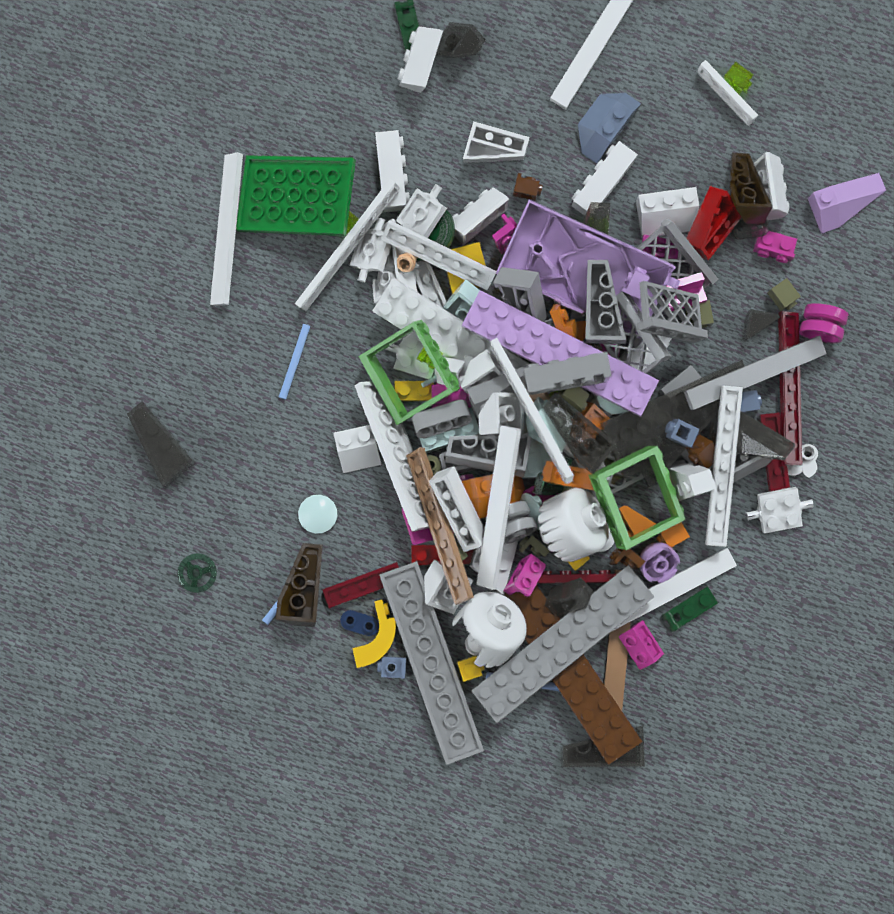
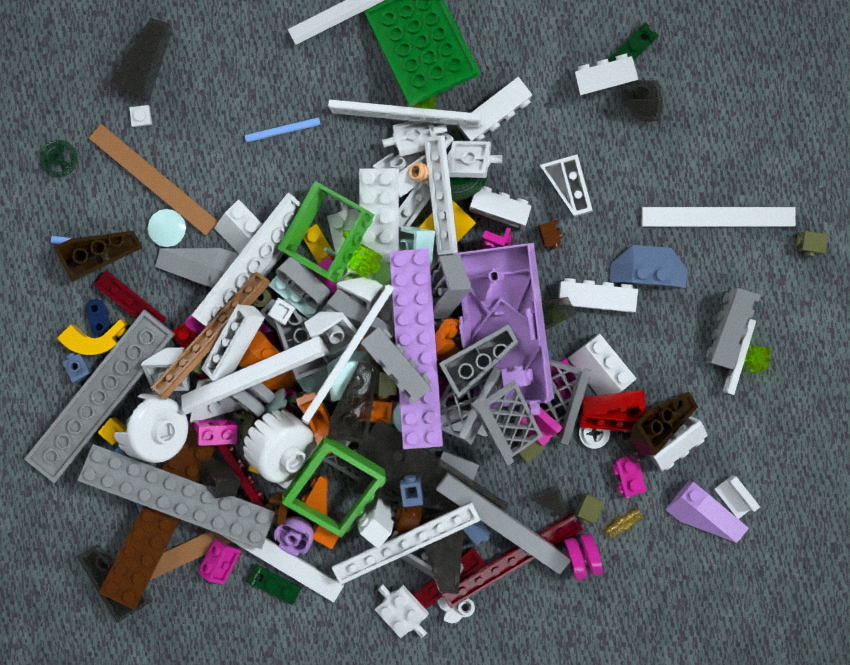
camera: 60 degrees right, 5 degrees up
(205, 477) = (140, 116): none -> white plate
(268, 500) = (153, 179): none -> medium nougat tile
(369, 502) = (196, 264): none -> light grey wedge
(457, 352) = (365, 261): none -> clear neon green brick
(458, 447) = (281, 311): none -> white tile
(698, 83) = (731, 327): none -> light grey wedge
(729, 252) = (587, 440): none -> white gear
(813, 273) = (624, 523): none -> clear yellow pin
(846, 166) = (736, 496): none -> white panel

